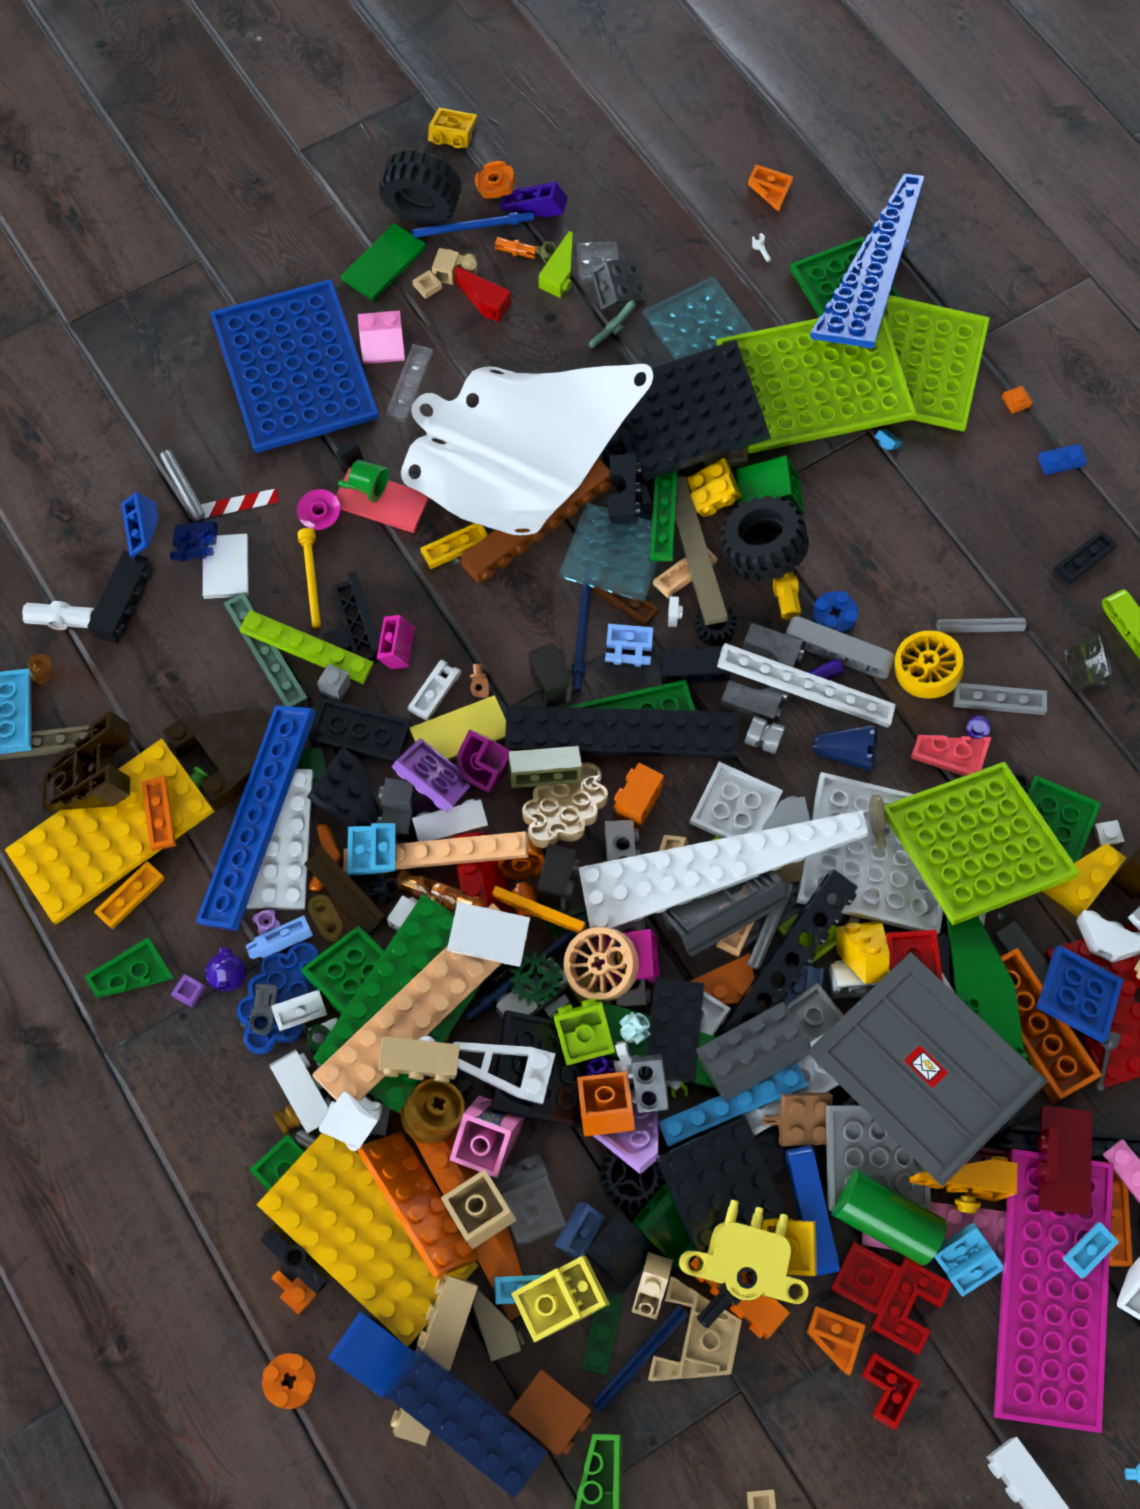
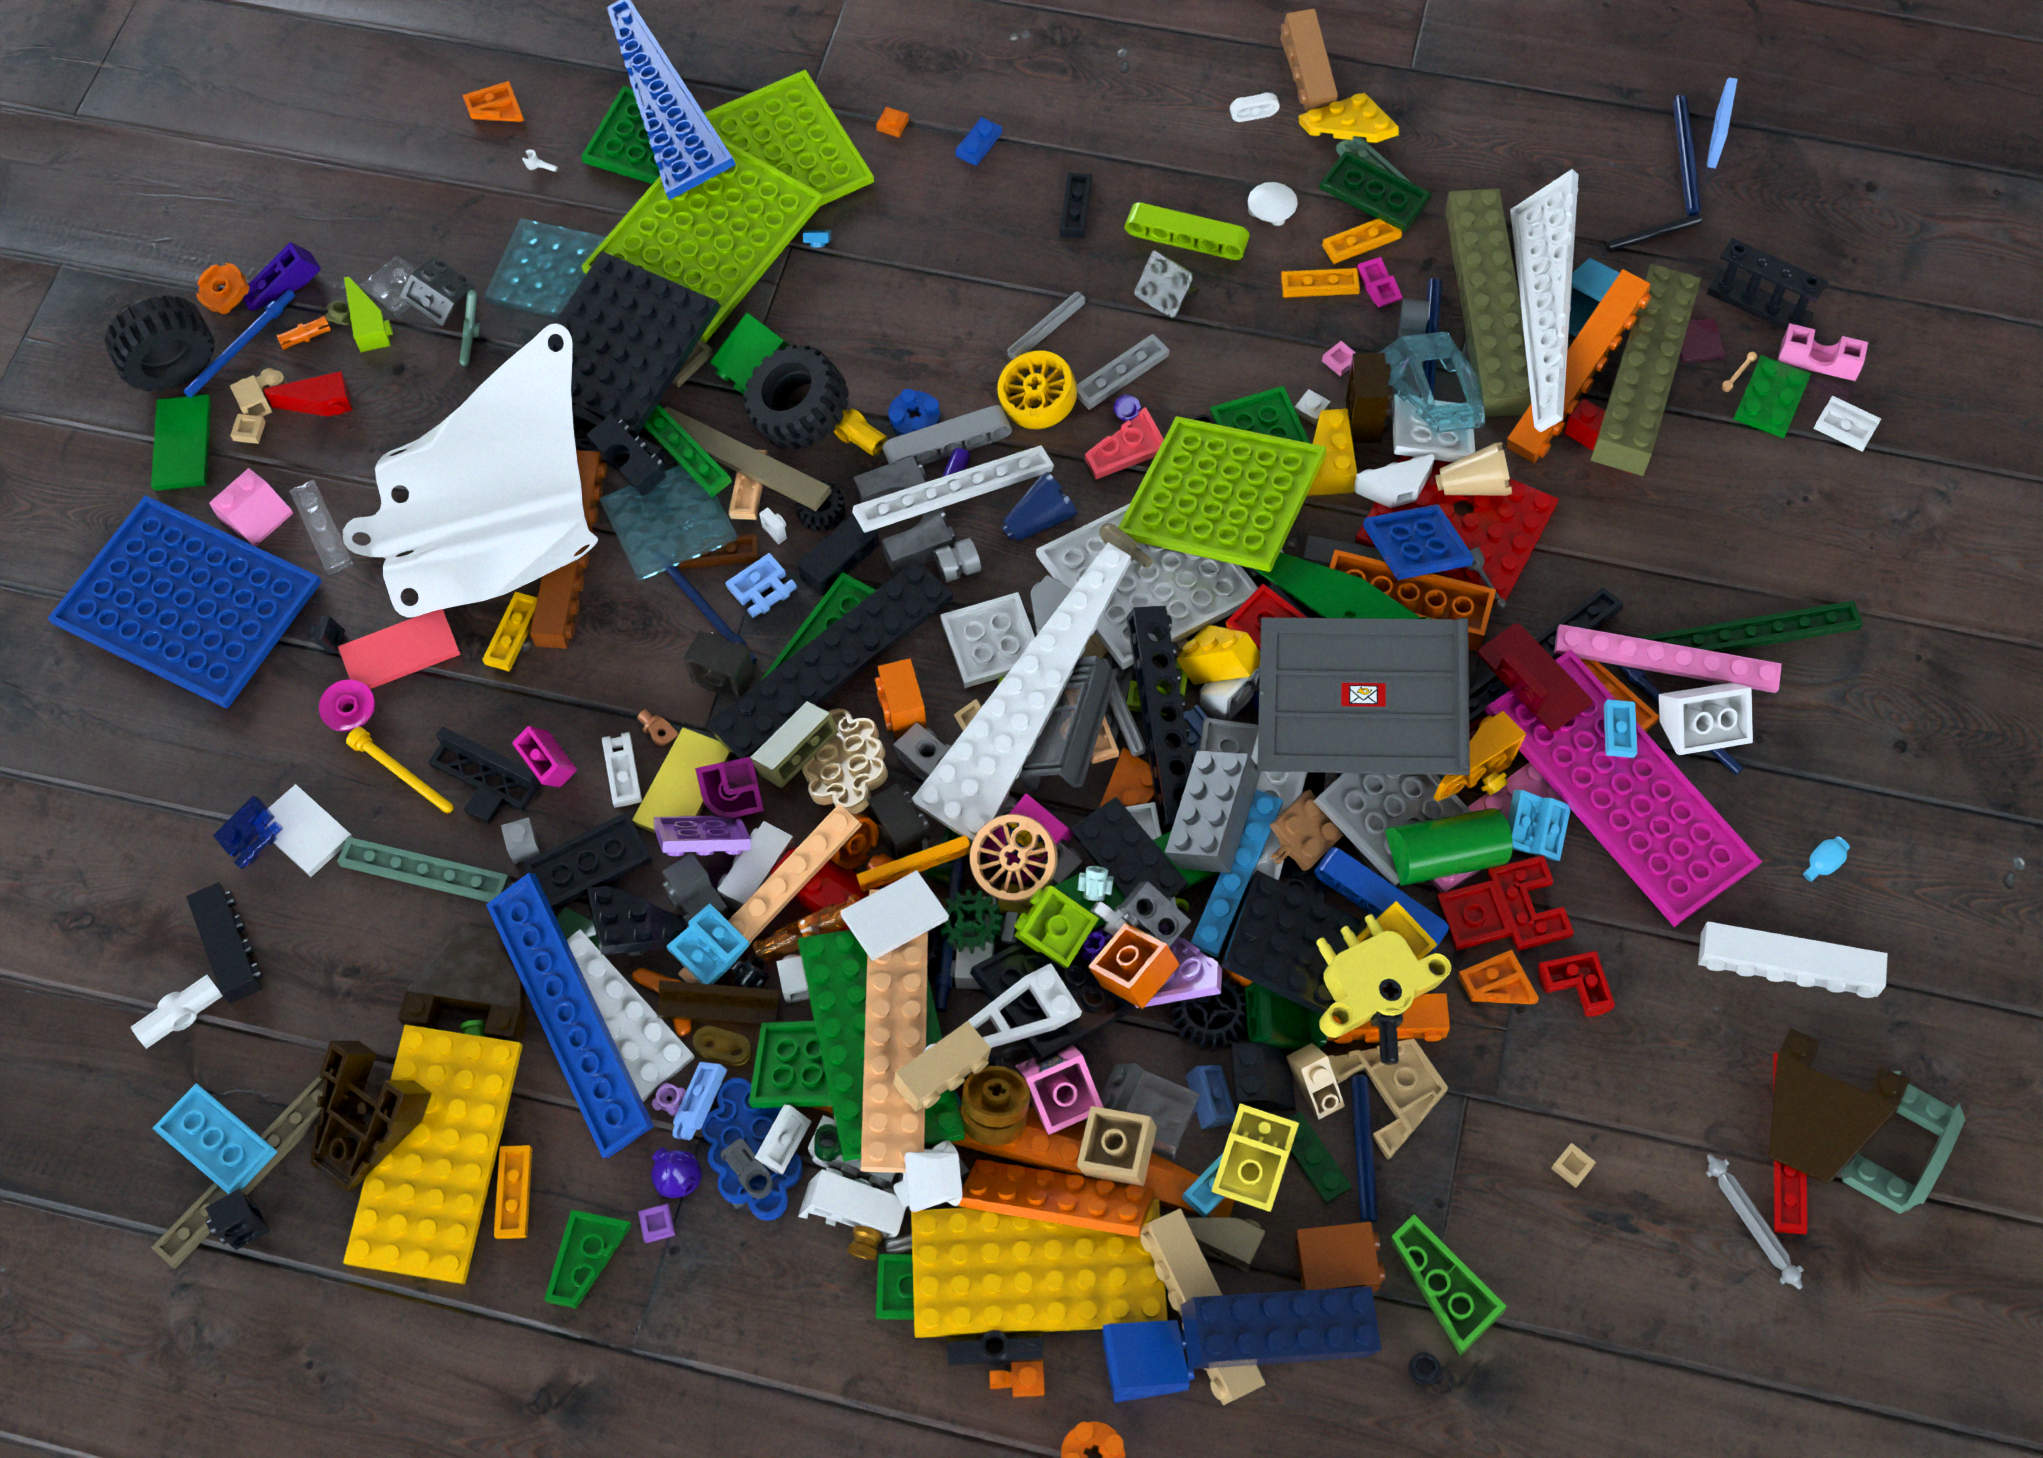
camera: 40 degrees left, 5 degrees down
(40, 668) = (209, 1071): clear orange brick -> none
(140, 522) = (177, 858): blue slope -> none
(158, 813) = (473, 1088): orange plate -> none
(183, 485) = (182, 794): light grey axle -> none
(239, 503) = (252, 771): sticker -> none
(305, 646) = (457, 832): lime plate -> none
(368, 479) = (369, 639): green hat -> none
(452, 128) = (129, 273): yellow plate -> none
(713, 488) = (704, 394): yellow plate -> none

